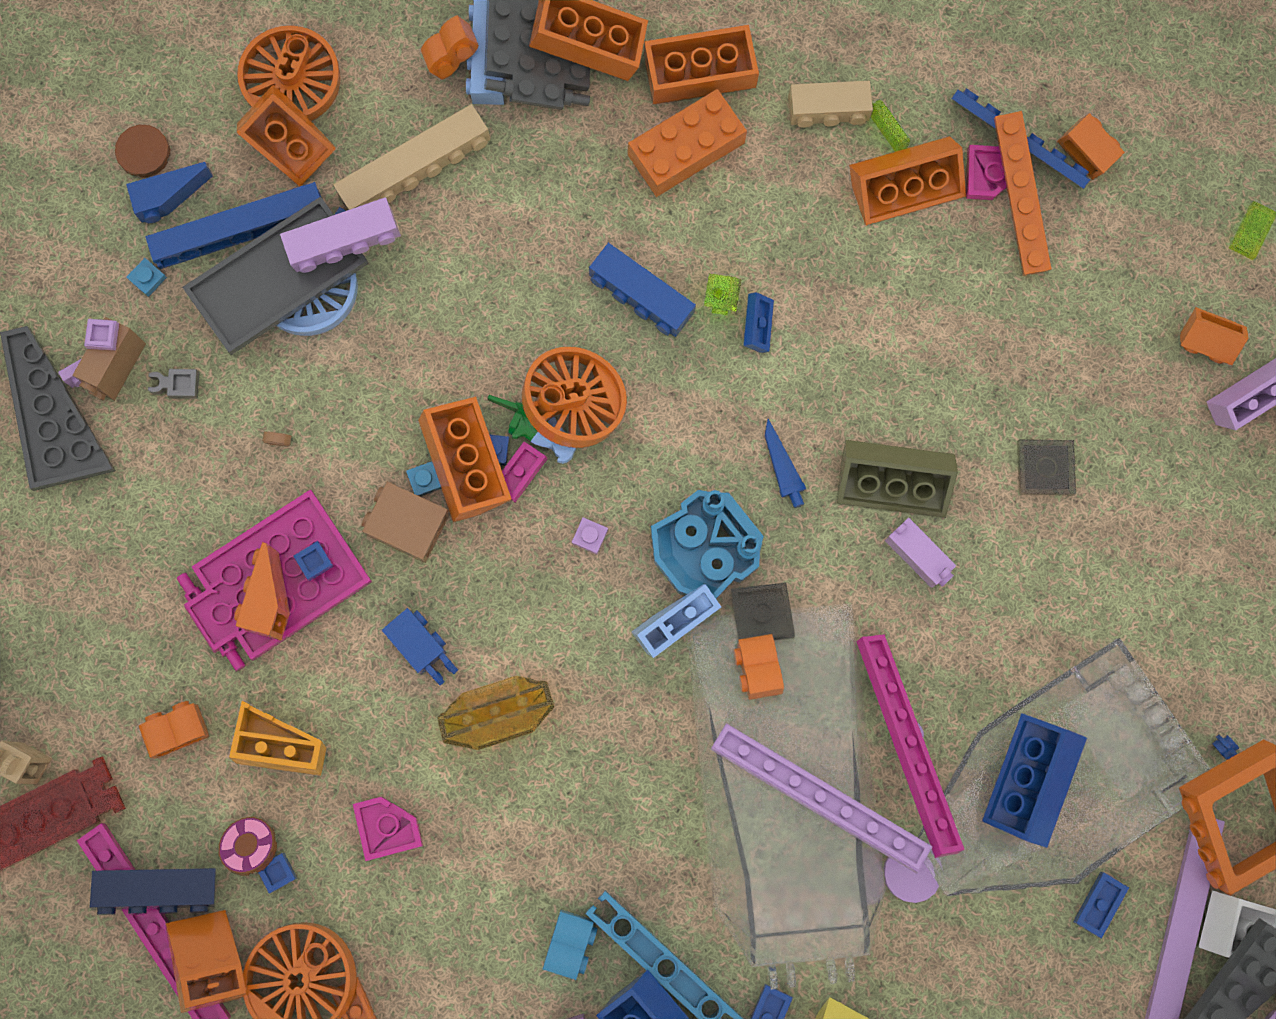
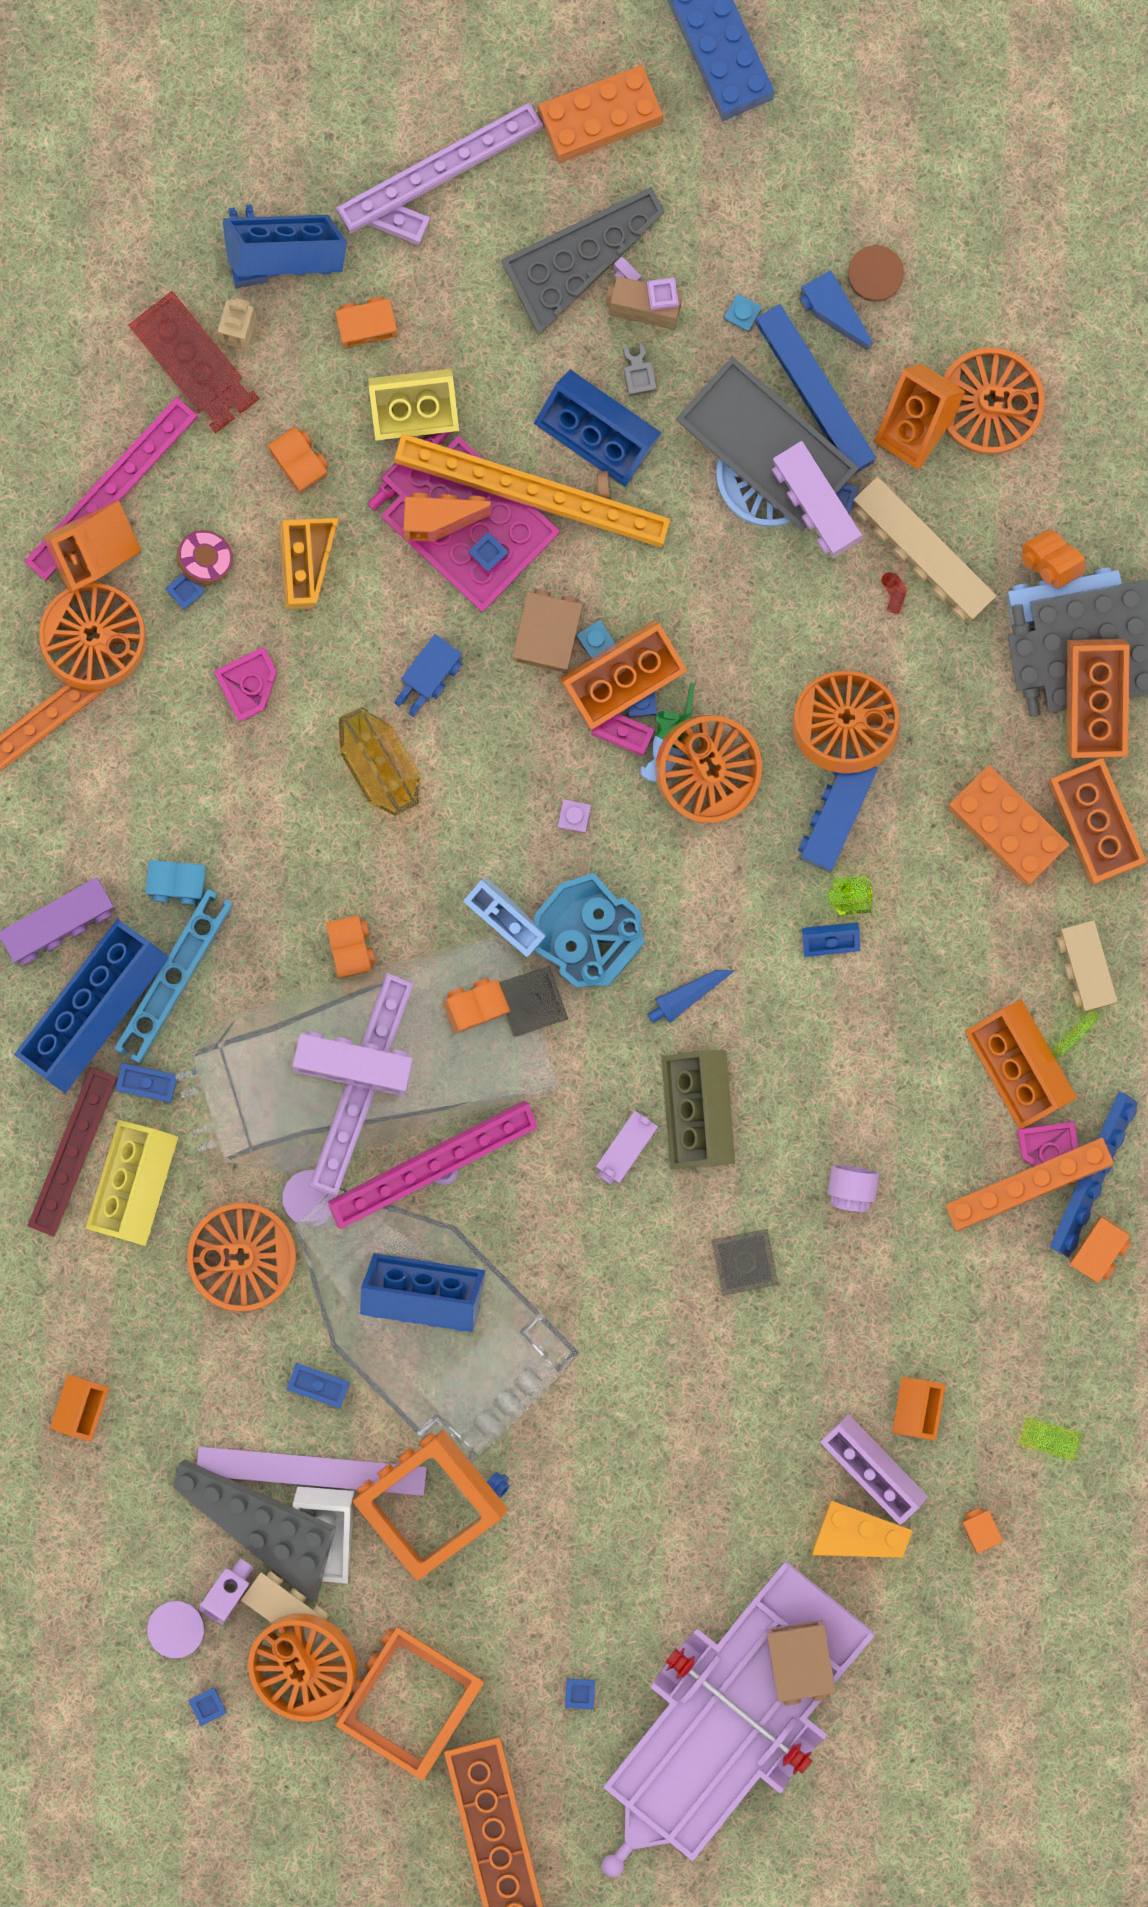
camera: 80 degrees right, 5 degrees up
(54, 633) = (366, 322): none -> orange brick
(149, 603) = (413, 404): none -> light yellow slope
(152, 890) = (147, 481): dark blue brick -> none
(219, 433) = (597, 427): none -> blue slope
(261, 509) = (531, 490): none -> light orange plate
(443, 196) = (896, 590): none -> clear red arm
(558, 262) = (833, 715): none -> orange piece
(672, 781) = (349, 946): none -> orange brick
(802, 801) = (352, 1063): none -> lavender brick
(966, 969) = (284, 1255): none -> orange piece
(996, 351) = (852, 1187): none -> lavender piece

